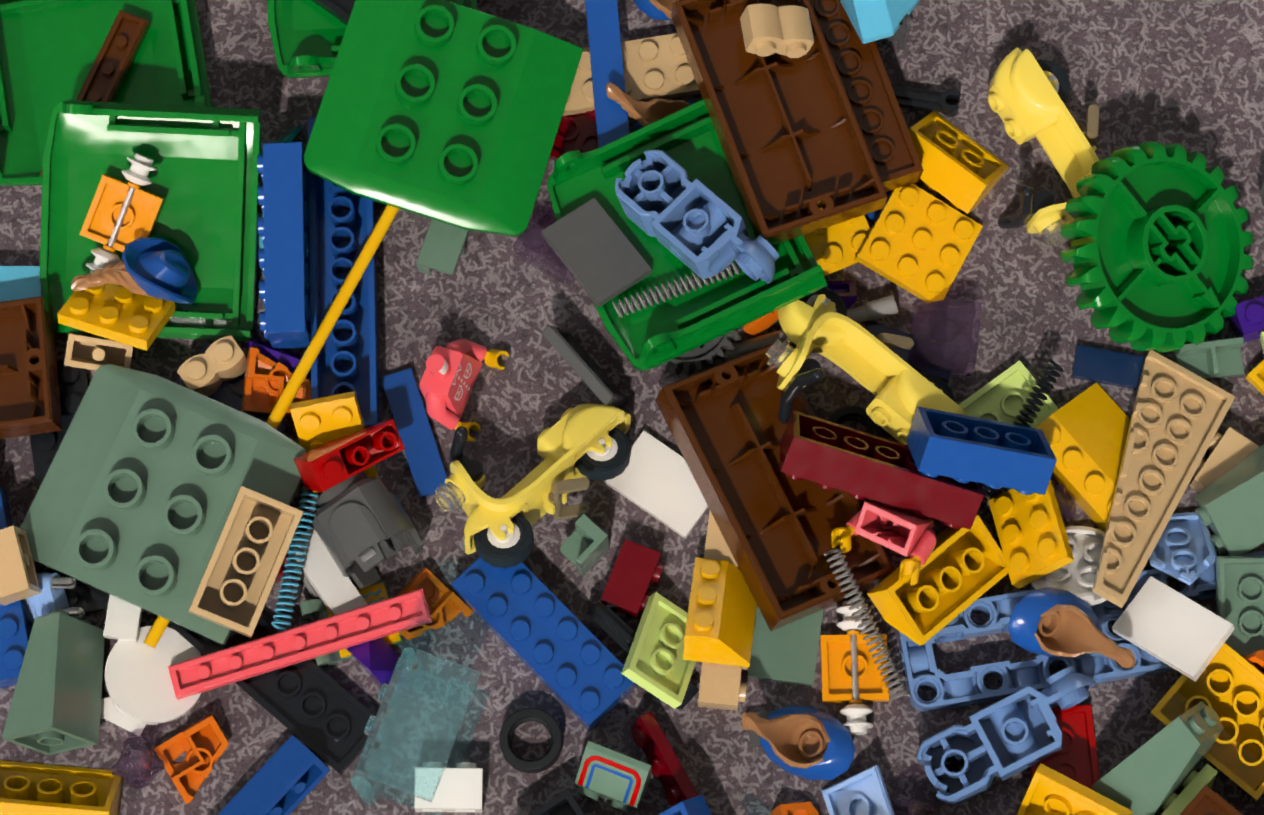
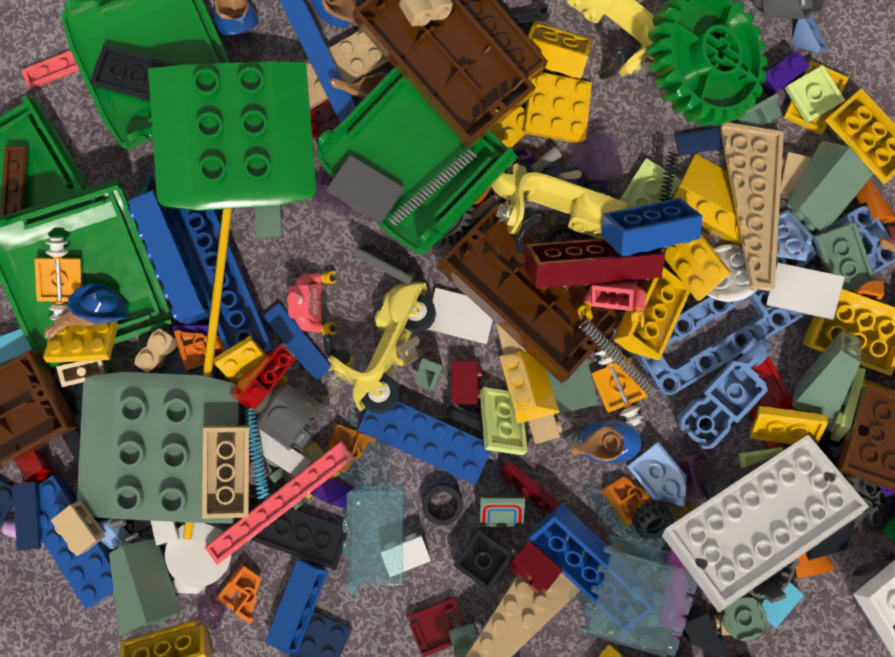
camera: 20 degrees left, 10 degrees up
(691, 219) = (418, 148): medium blue brick -> none
(1062, 625) = (740, 315): hat -> none

